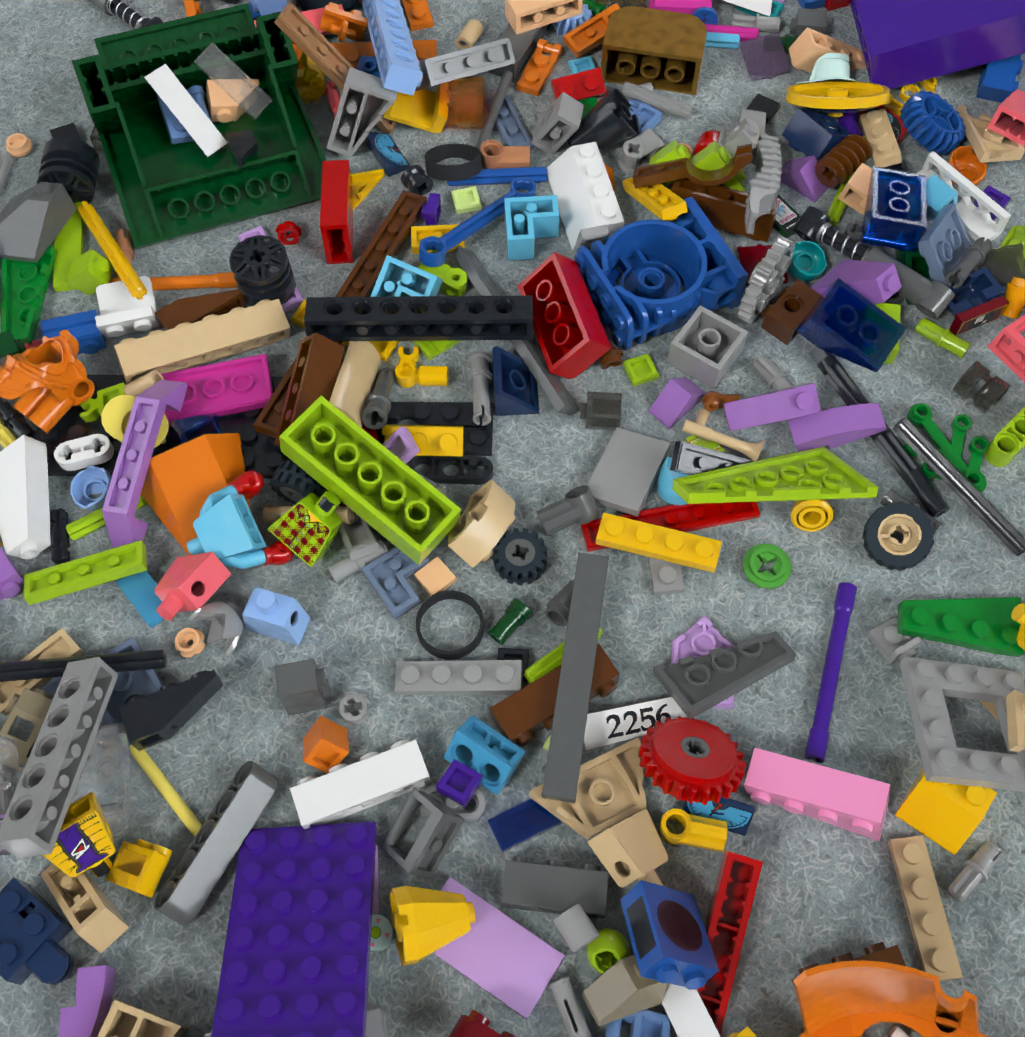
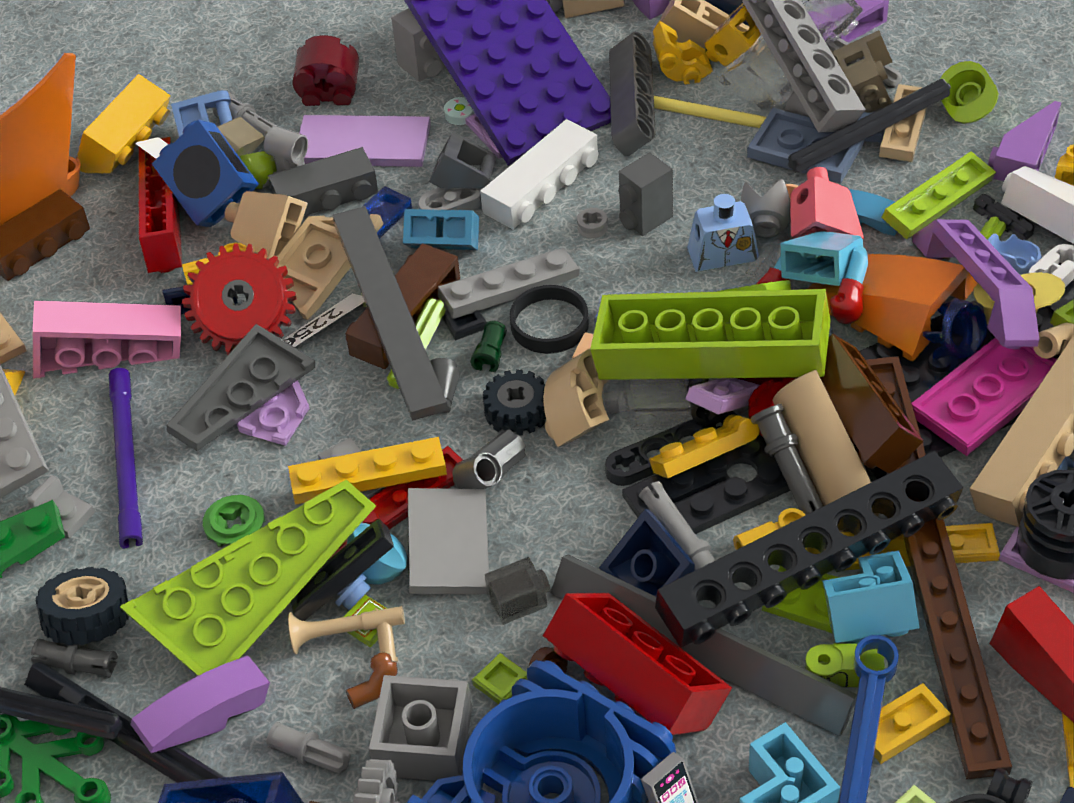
camera: 155 degrees right, 15 degrees down
(163, 713) = (754, 125): black slope -> none
(325, 744) = (595, 185): orange panel -> none
(427, 921) = (416, 107): yellow cone -> none
(431, 209) = (942, 754): dark purple plate -> none
(459, 783) = (449, 194): dark purple plate -> none
(676, 401) = (429, 652): medium lavender slope -> none
(772, 407) = (281, 692): medium lavender slope -> none

